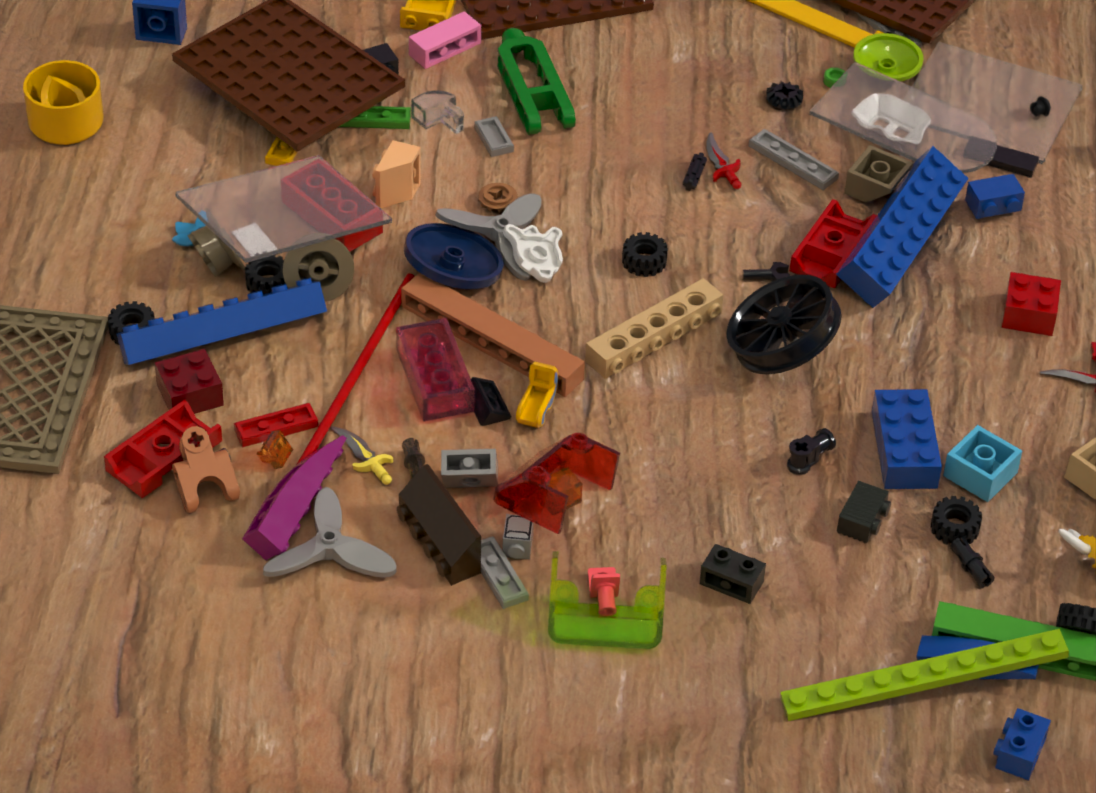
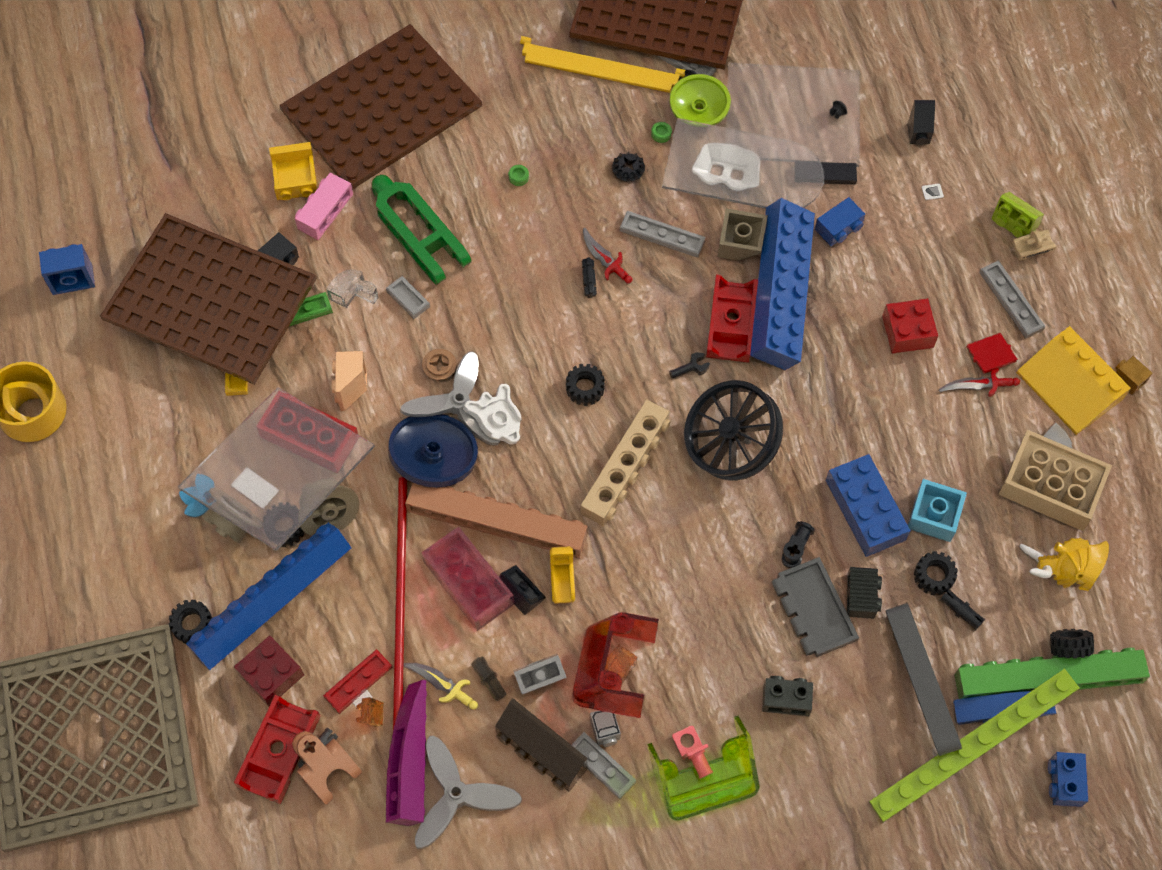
camera: 20 degrees left, 20 degrees up
(662, 72) = (518, 175): none -> bright green tile
(803, 512) = (816, 606): none -> dark grey hinge
(893, 599) = (923, 680): none -> dark grey beam

